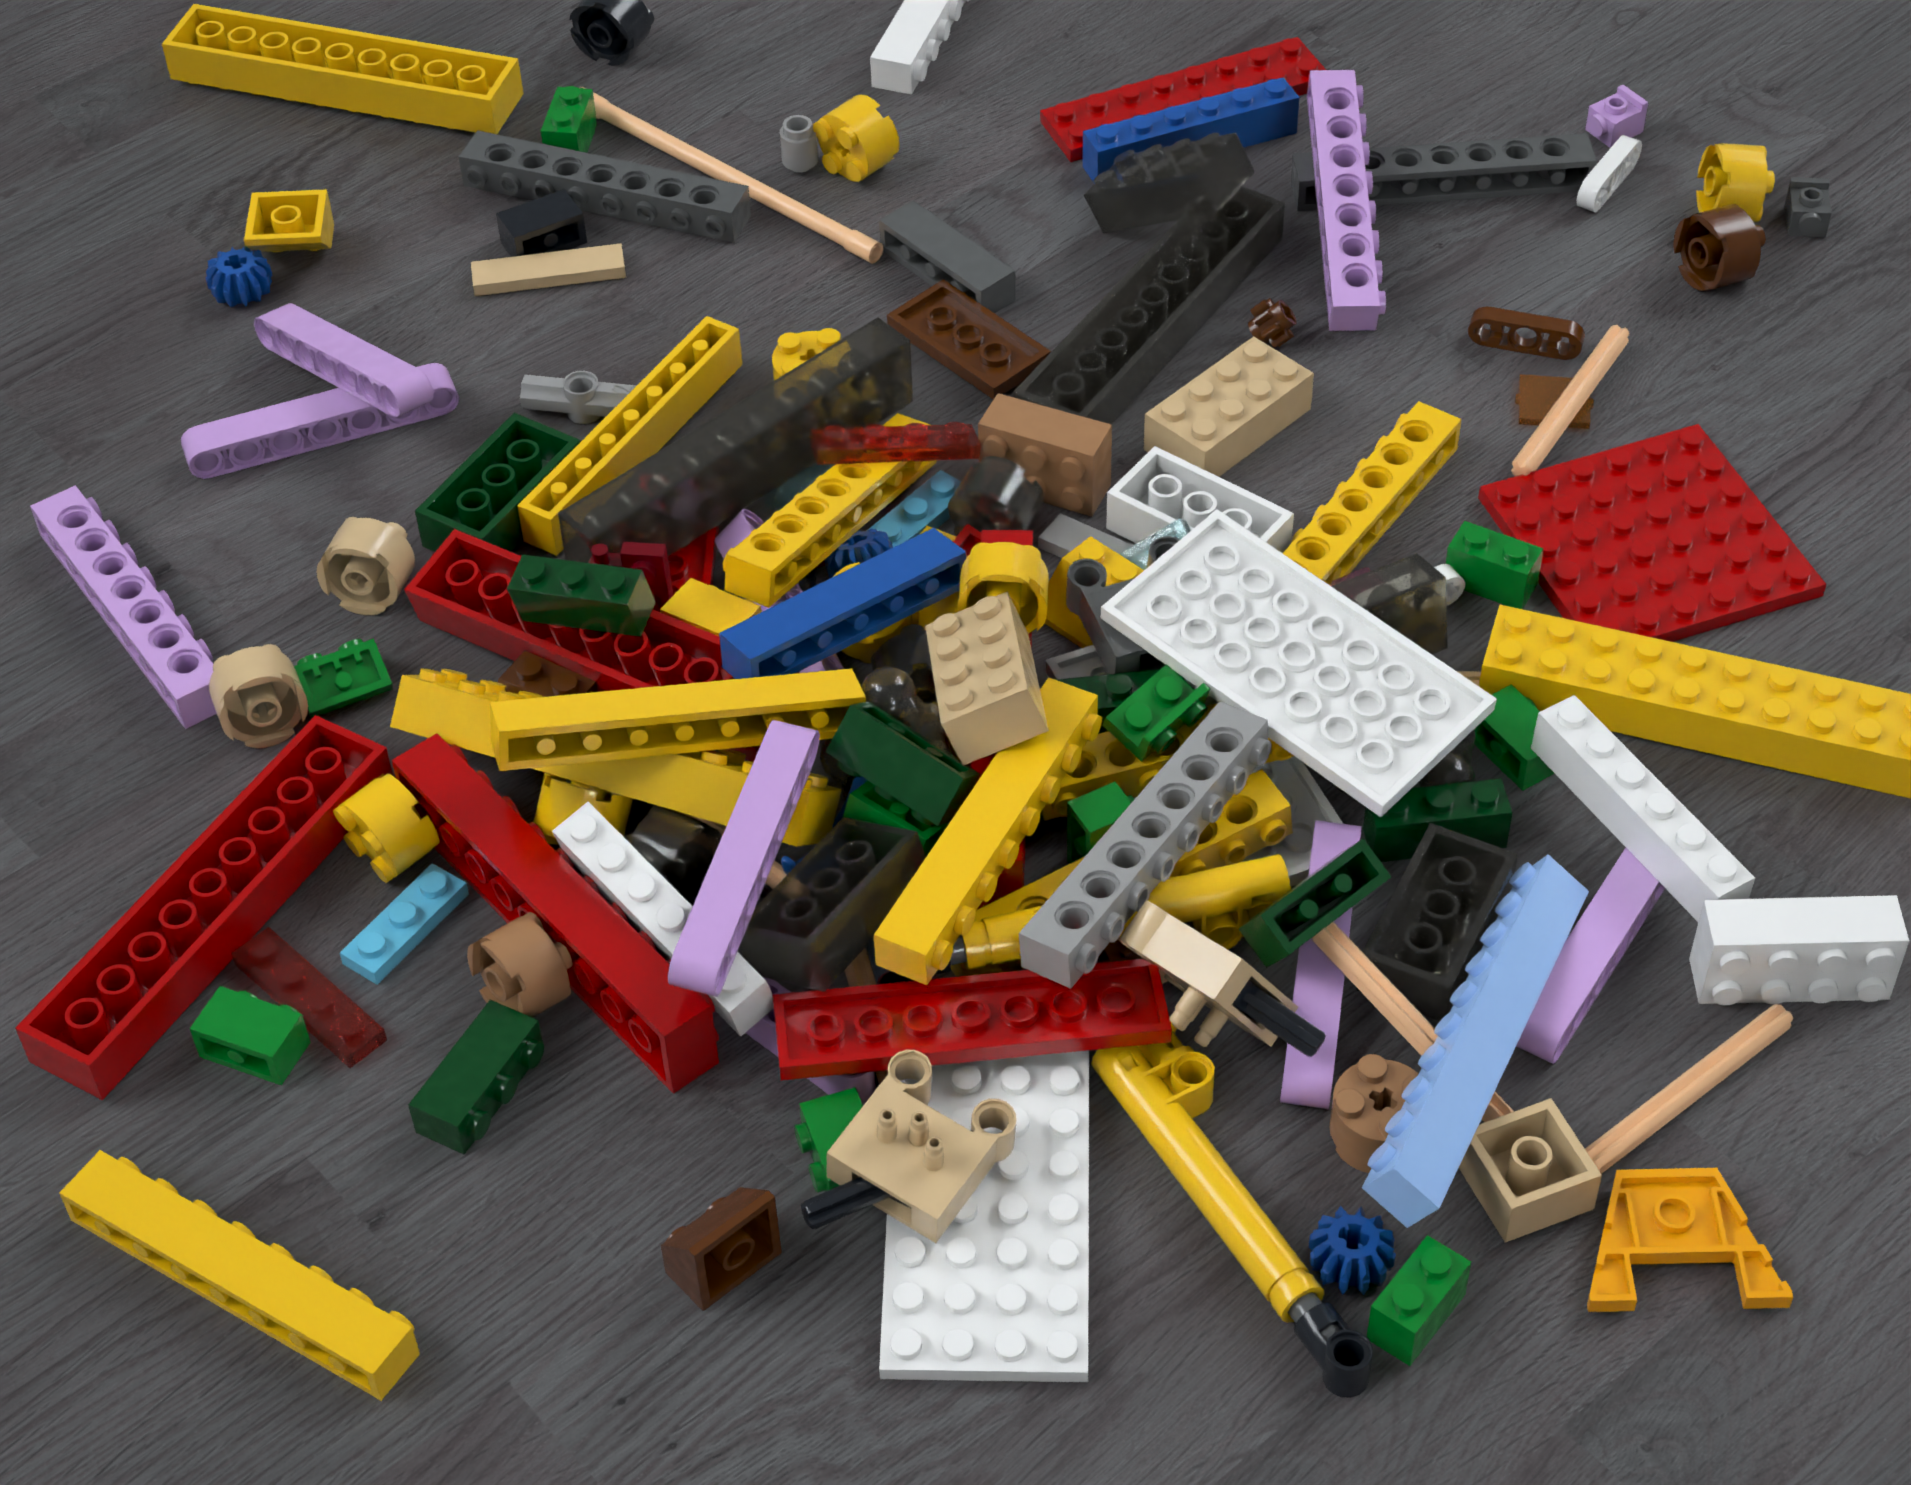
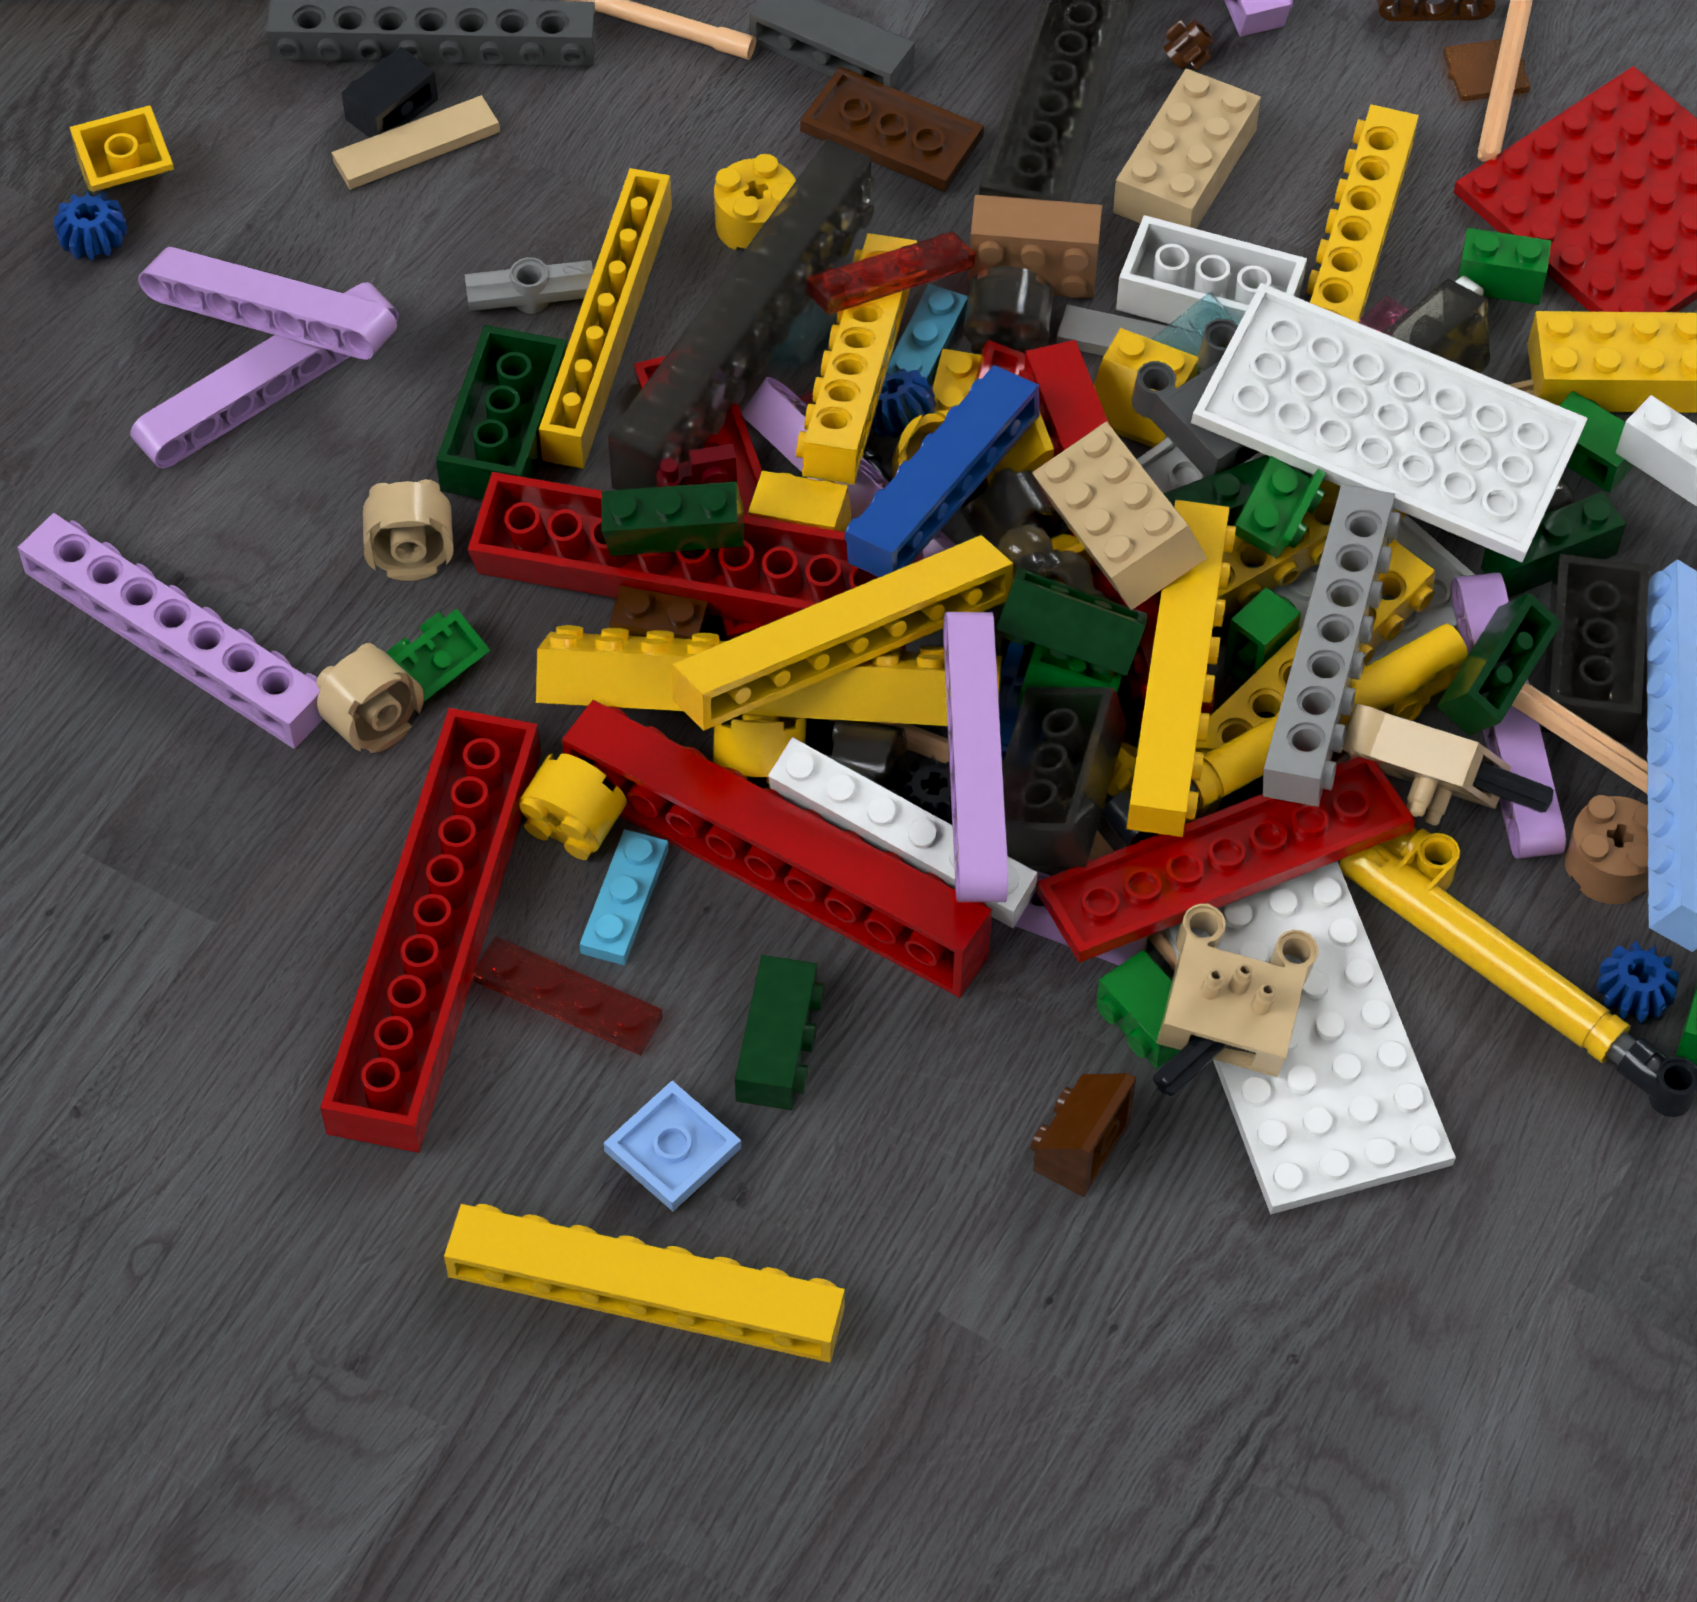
camera: 20 degrees left, 10 degrees up
(250, 1035) = (537, 1049): green brick -> none
(330, 1154) = (672, 1145): none -> light blue plate
(521, 966) = (774, 914): medium nougat brick -> none
(1004, 568) = (1085, 402): yellow brick -> none

